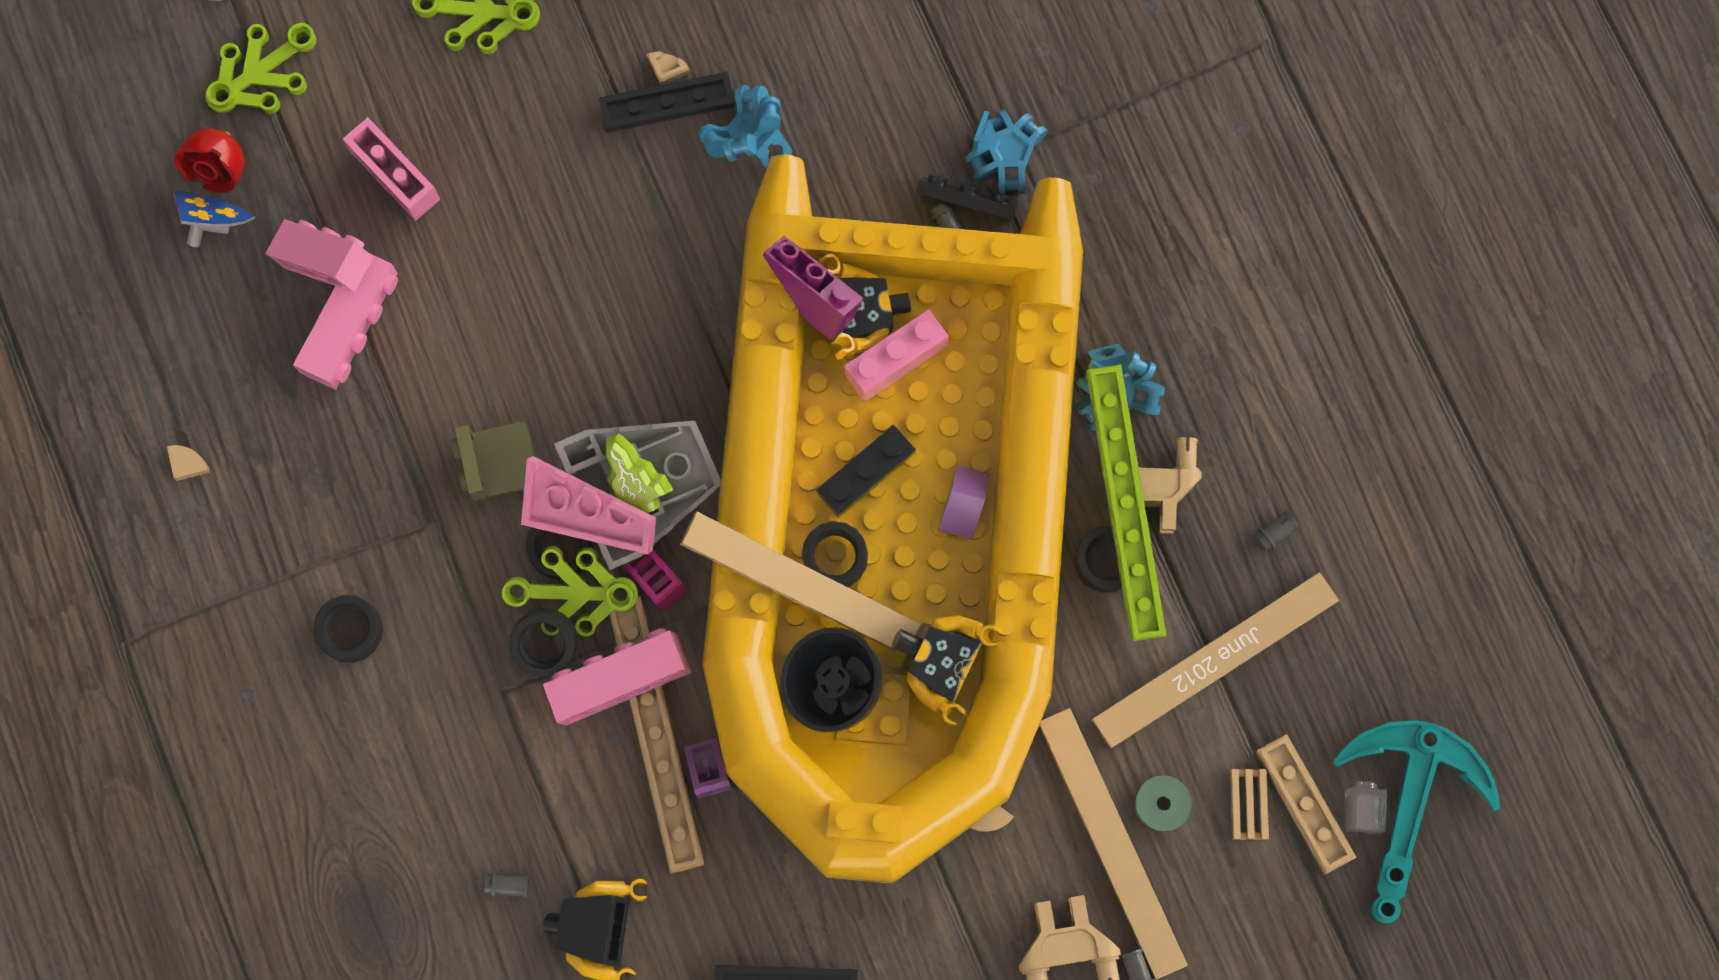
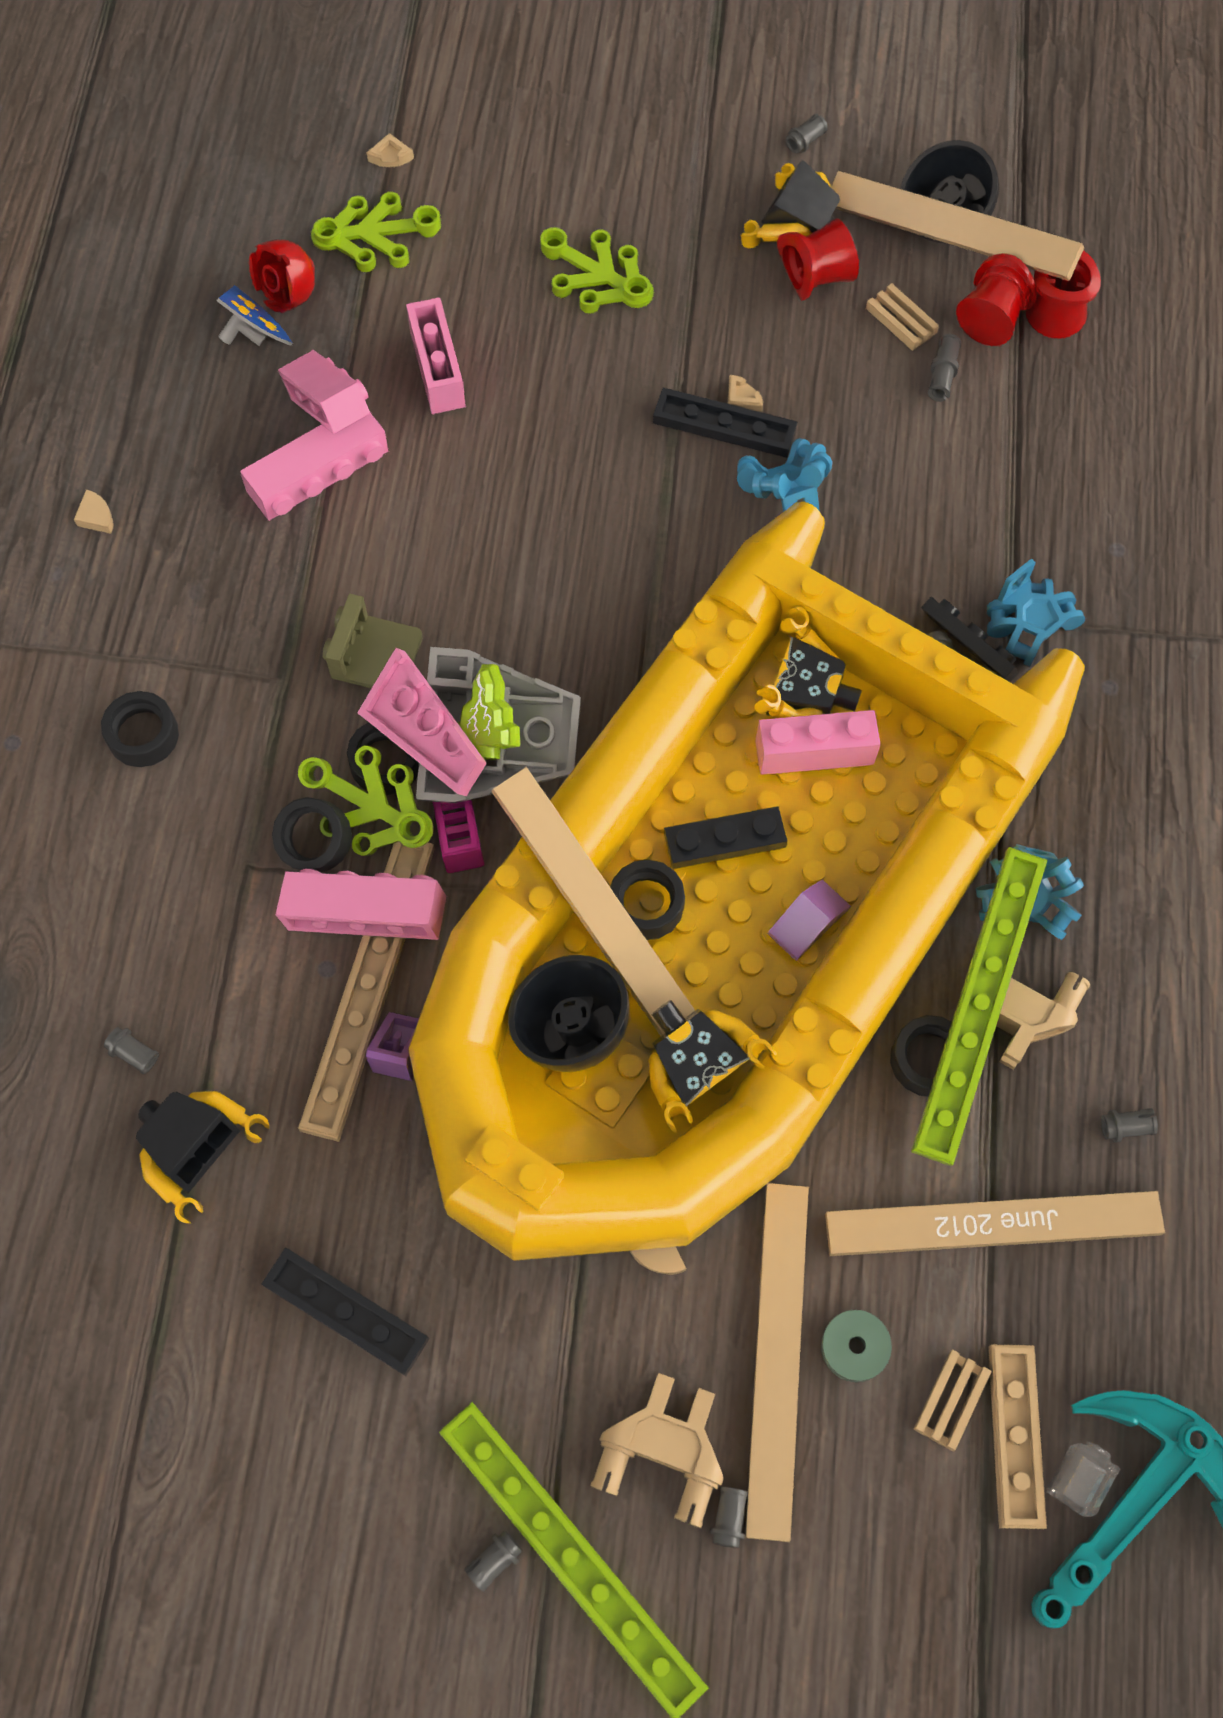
camera: 30 degrees right, 10 degrees down
(814, 290) = (768, 631): magenta slope -> none

